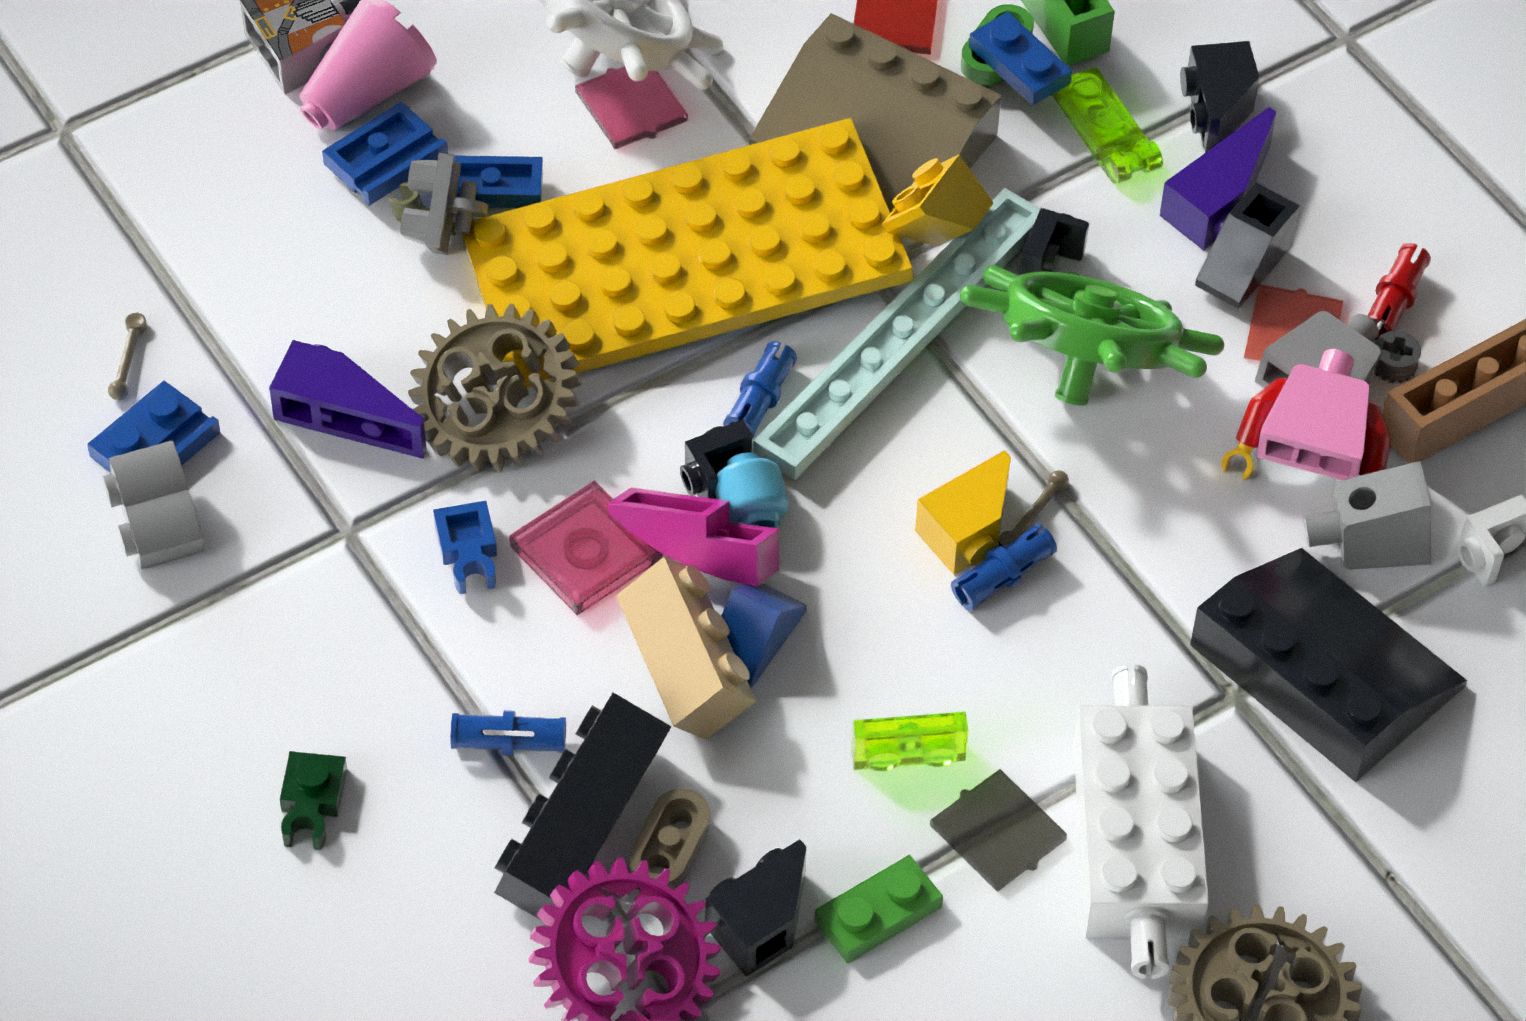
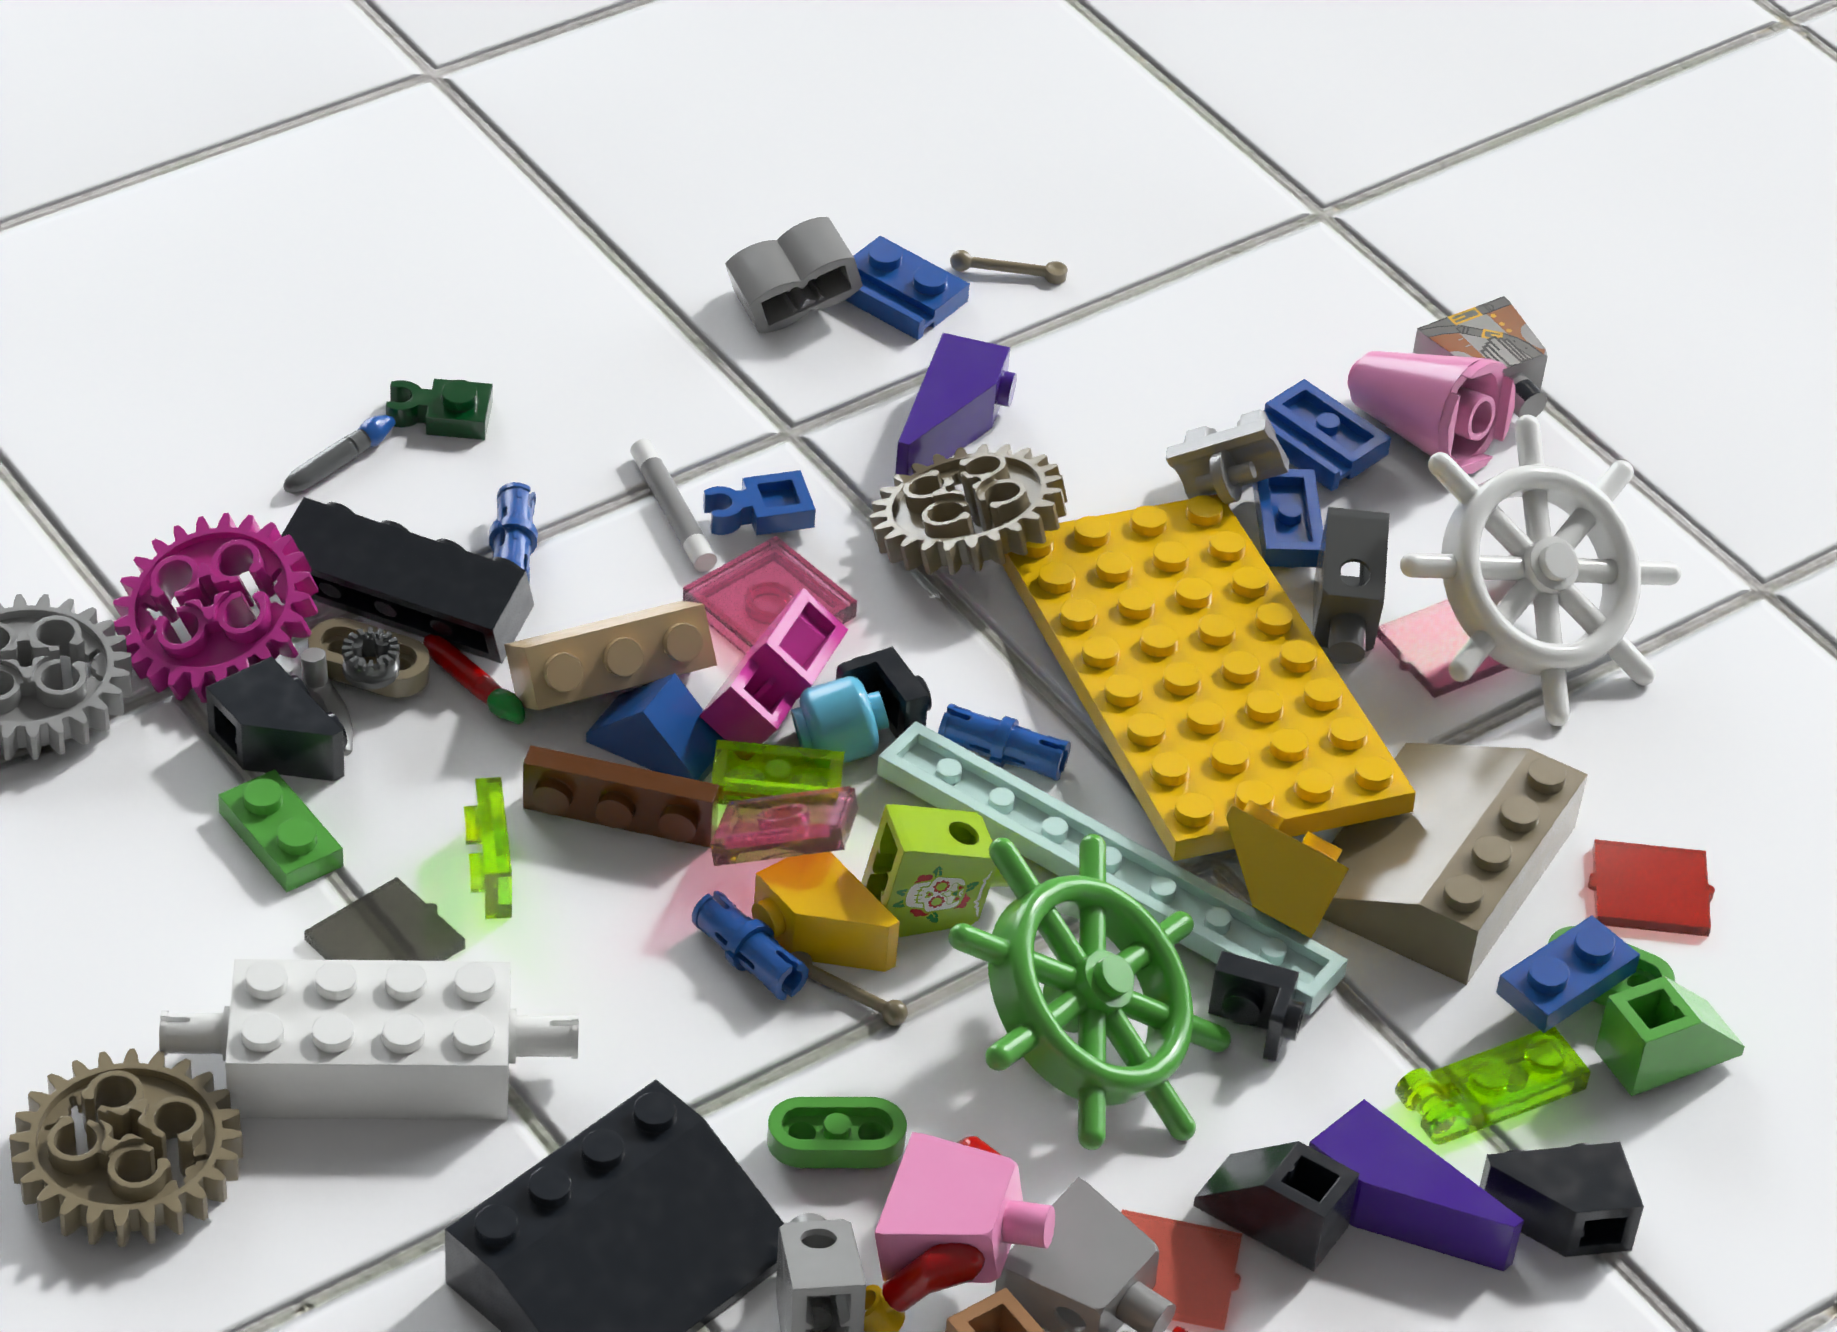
camera: 85 degrees right, 10 degrees down
(375, 879) = (340, 453): none -> dark grey piece
(453, 616) = (673, 505): none -> light grey bar
(601, 140) = (1344, 606): none -> dark grey torso
(685, 766) = (499, 700): none -> red piece
(703, 882) = (322, 690): none -> light grey bar
(711, 818) = (370, 645): none -> dark grey bush
(811, 543) = (770, 770): none -> clear neon green plate
(847, 651) = (620, 796): none -> reddish brown plate
(895, 526) = (784, 826): none -> clear pink tile
(939, 412) = (931, 867): none -> lime torso
(1198, 520) = (836, 1132): none -> bright green plate

